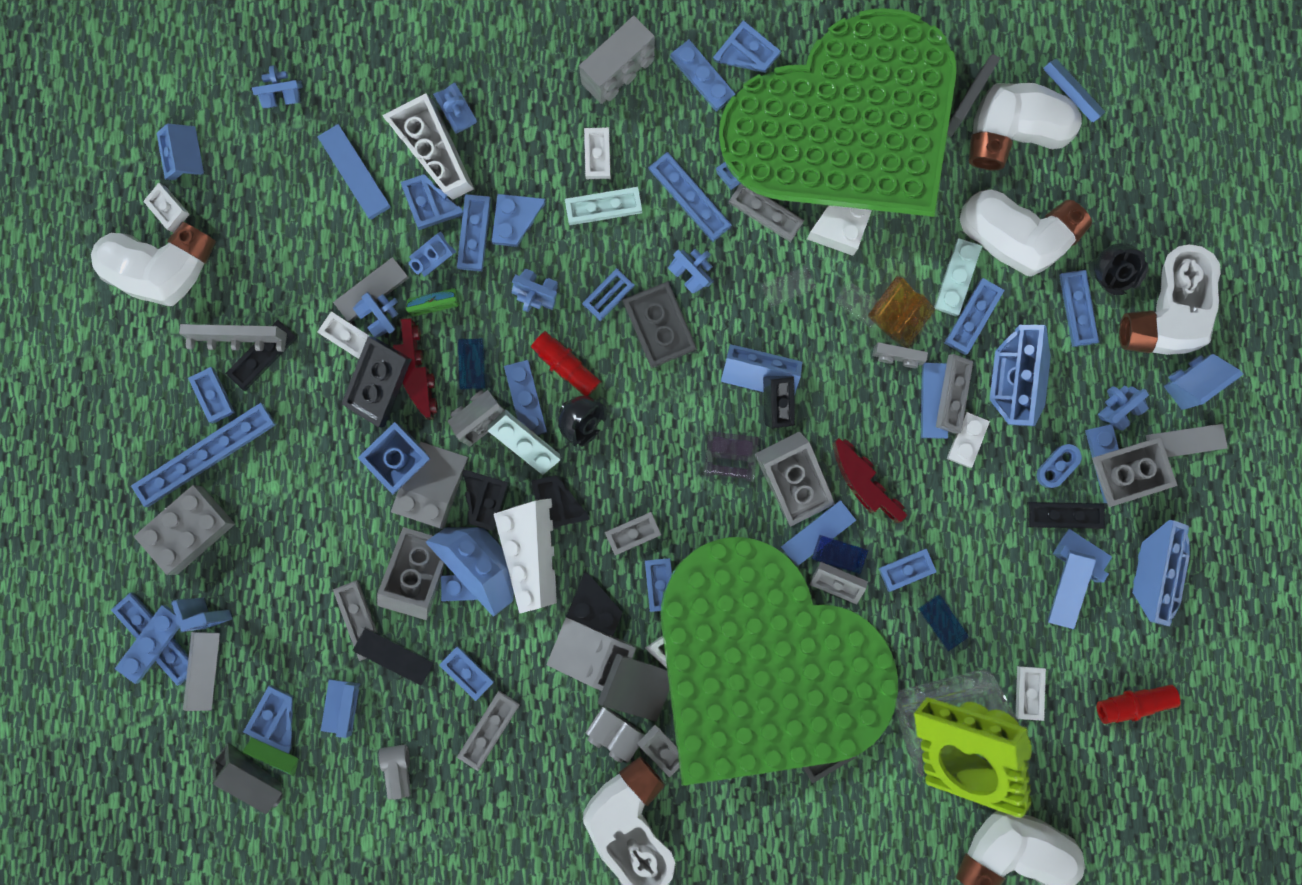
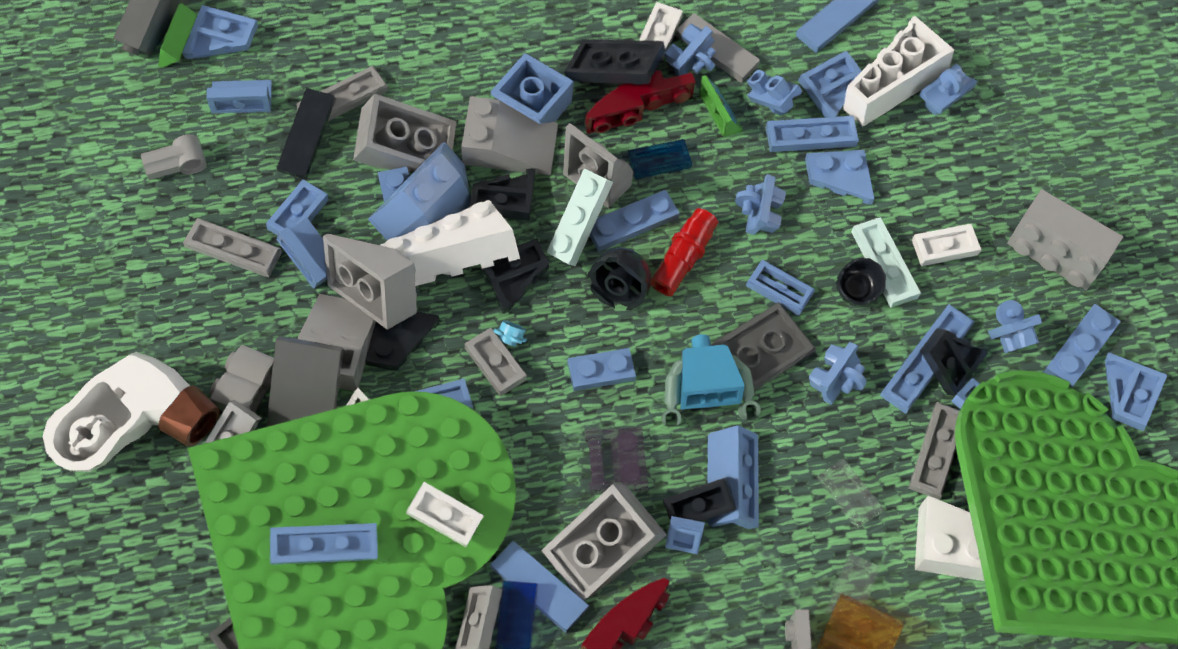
camera: 75 degrees right, 20 degrees down
(509, 667) = (306, 250): none -> medium blue panel
(551, 620) = (371, 278): none -> light grey slope
(611, 517) = (511, 333): none -> medium azure plate
(620, 231) = (861, 282): none -> black hair
(653, 451) = (601, 369): none -> medium blue plate
(684, 372) = (708, 379): none -> dark azure torso
(685, 122) = (1015, 330): none -> medium blue hips
(699, 179) = (951, 359): none -> black wing
(766, 595) = (444, 514): none -> white plate
(776, 690) = (323, 543): none -> medium blue plate
(801, 418) = (684, 535): none -> medium blue tile

